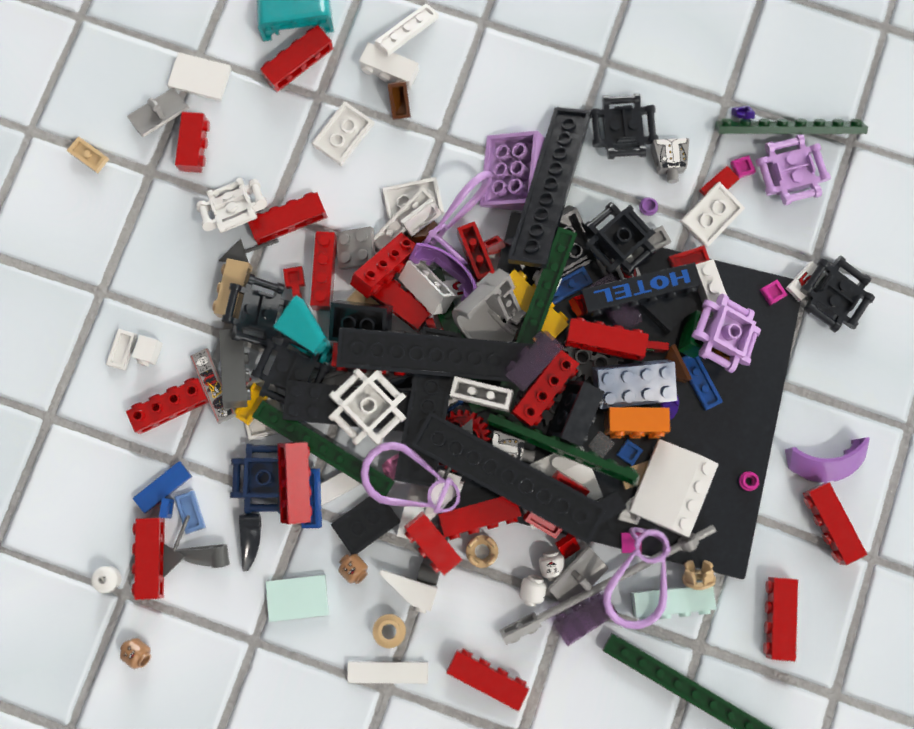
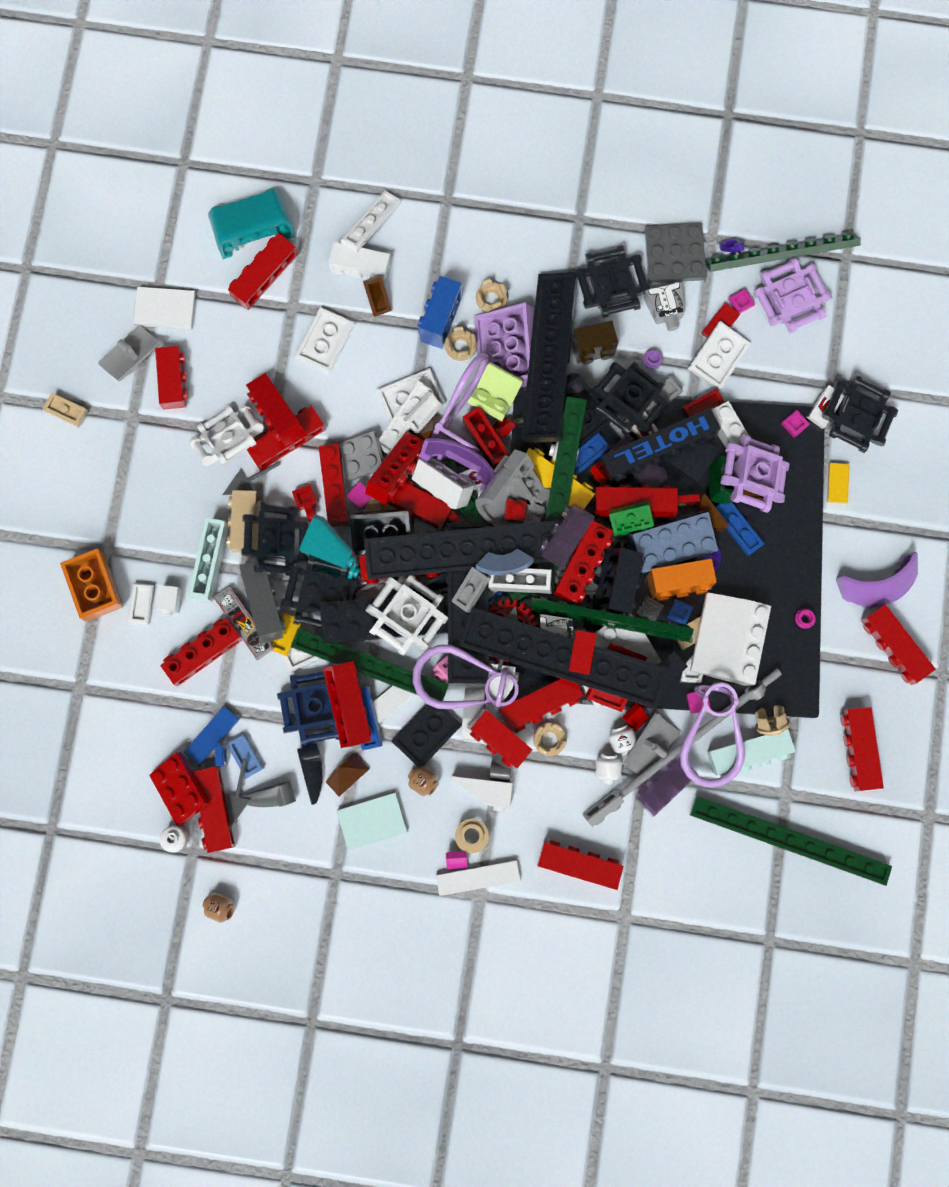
camera: 10 degrees left, 0 degrees up
(78, 323) = (91, 585): none -> orange brick
(120, 532) = (179, 789): none -> red plate
(191, 320) = (208, 560): none -> light aqua brick
(282, 190) = (275, 409): none -> red brick
(282, 549) = (347, 775): none -> reddish brown slope
(343, 285) = (358, 496): none -> dark pink tile
(370, 651) = (456, 860): none -> dark pink tile
(432, 394) = (471, 589): none -> light grey plate
(455, 125) = (440, 312): none -> blue brick
(469, 150) = (460, 334): none -> tan piece
(469, 376) = (502, 564): none -> sand blue tile
(489, 327) = (515, 511): none -> red plate
(493, 210) = (495, 391): none -> yellowish green bracket
(506, 111) = (491, 287): none -> tan piece
(527, 476) = (582, 652): none -> red tile
(596, 180) = (594, 342): none -> dark brown brick
(599, 355) = (631, 518): none -> green bracket
(688, 110) = (675, 253): none -> dark grey plate
(804, 356) = (838, 483): none -> yellow tile

